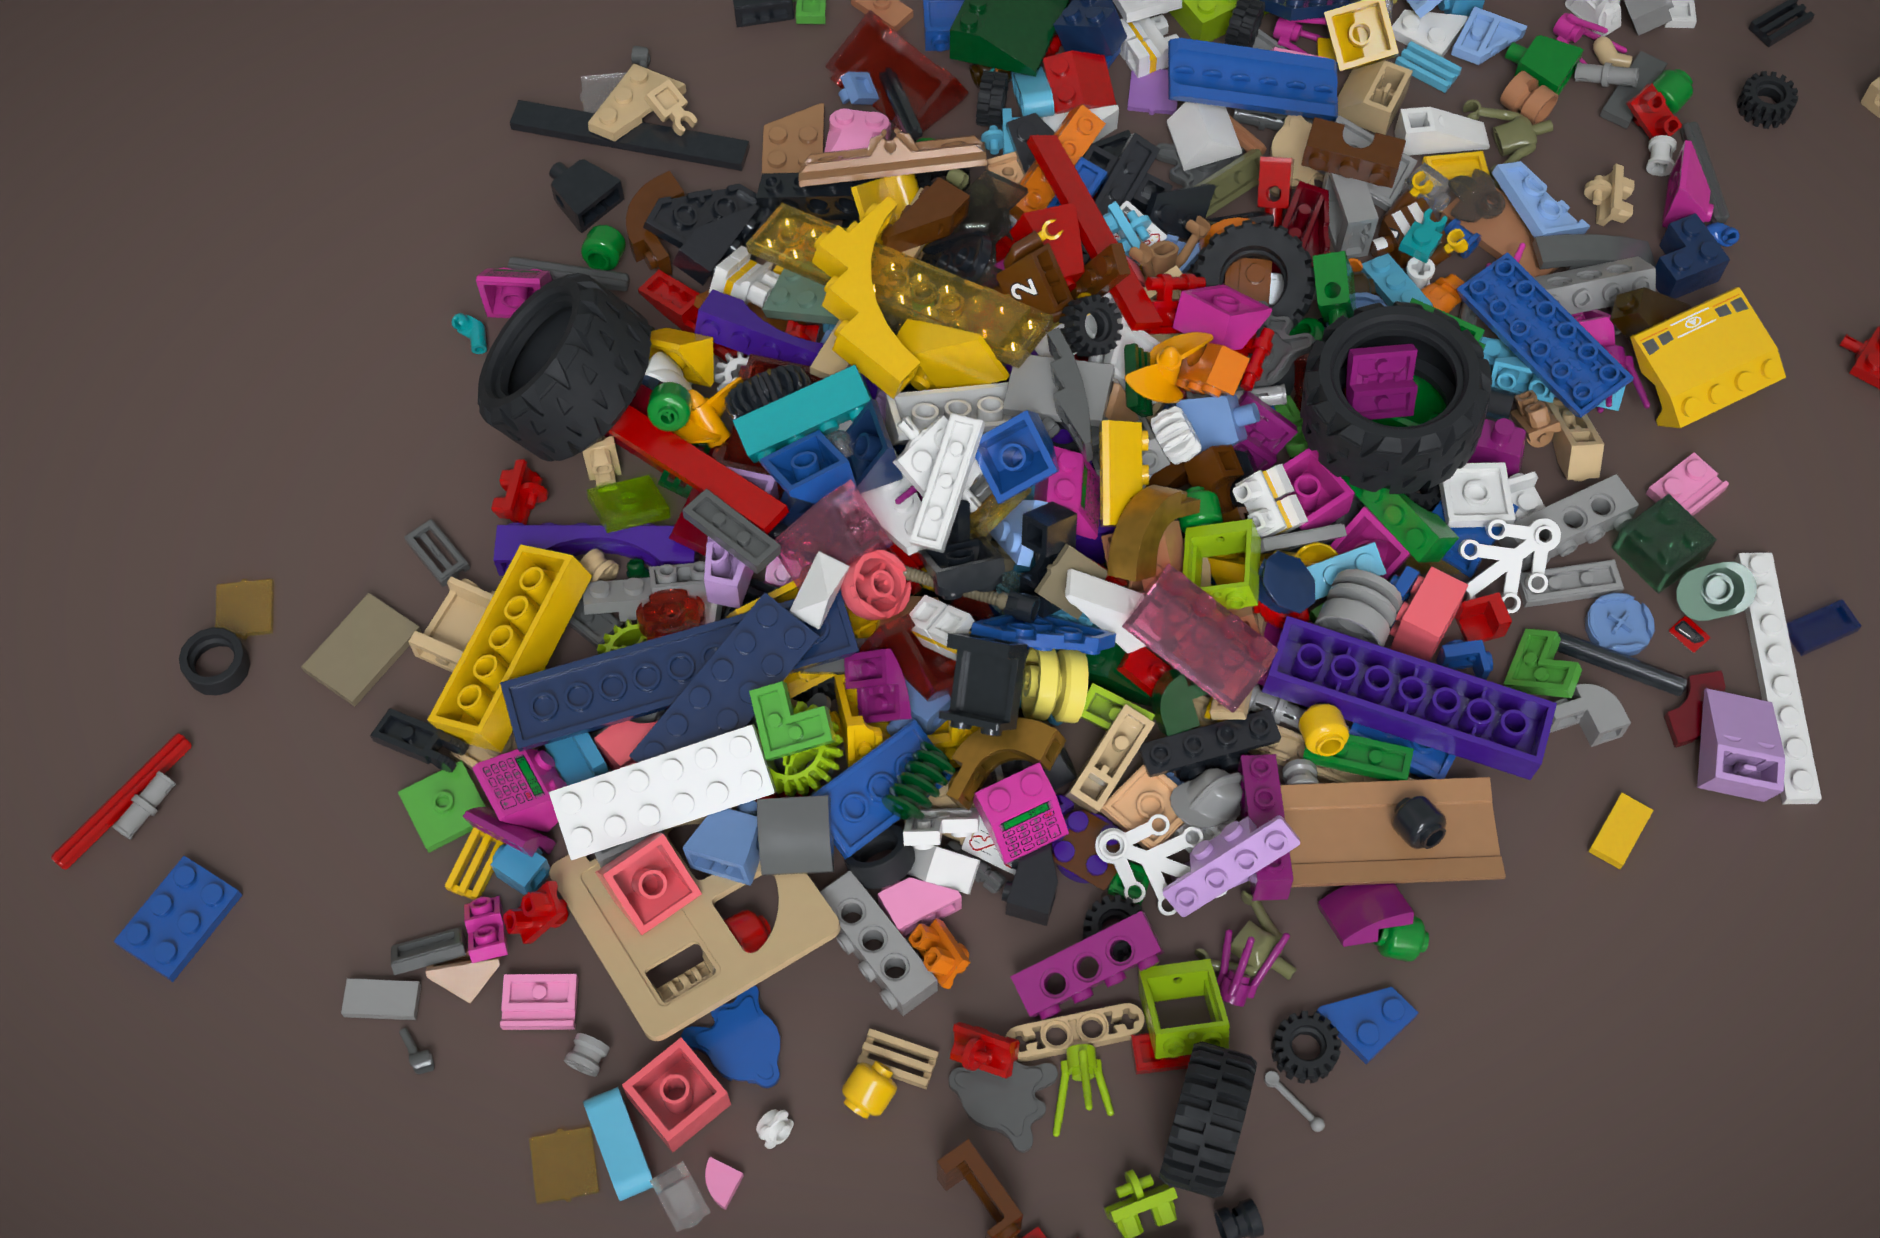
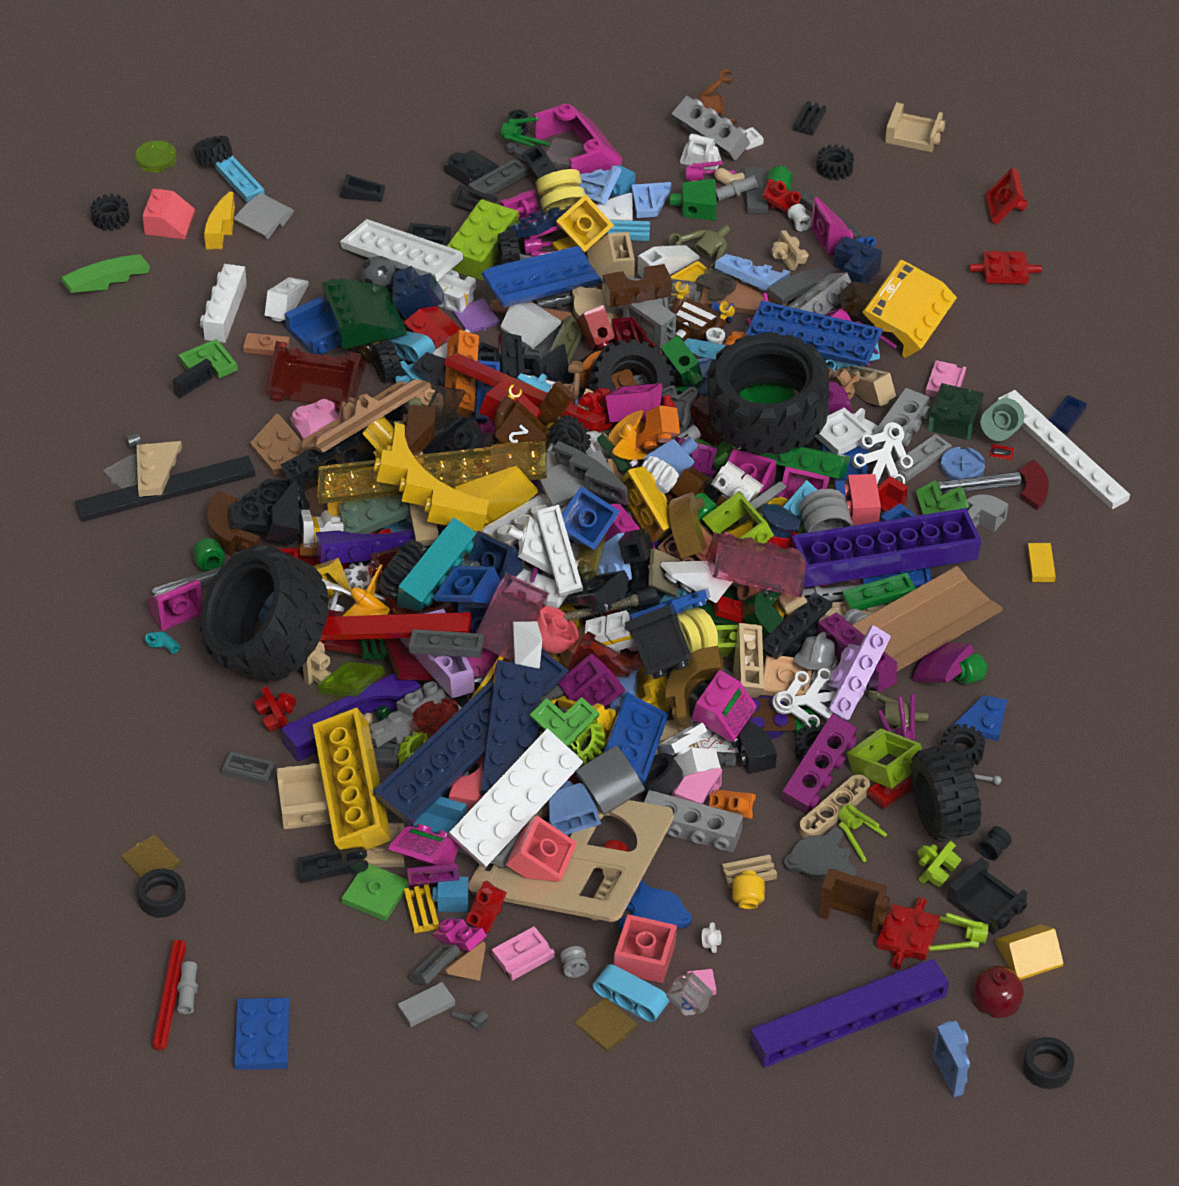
camera: 35 degrees left, 15 degrees down
(361, 649) = (248, 841): dark tan tile -> none
(585, 192) = (167, 531): black torso -> none
(669, 406) = (351, 600): green head -> none
(670, 103) = (183, 454): tan plate -> none
(858, 89) = (296, 394): medium blue tile -> none
(900, 103) = (329, 387): black axle -> none
(918, 782) = (657, 719): dark green piece -> none
(984, 1050) = (795, 835): red hips -> none
(1323, 729) = (853, 584): yellow head -> none
(1382, 381) = (755, 383): magenta slope -> none
(1419, 822) = (939, 603): black head -> none
(1423, 238) = (705, 317): teal plate -> none
(1527, 97) = (702, 219): nougat wheel -> none
(1740, 747) = (1073, 489): lavender slope -> none

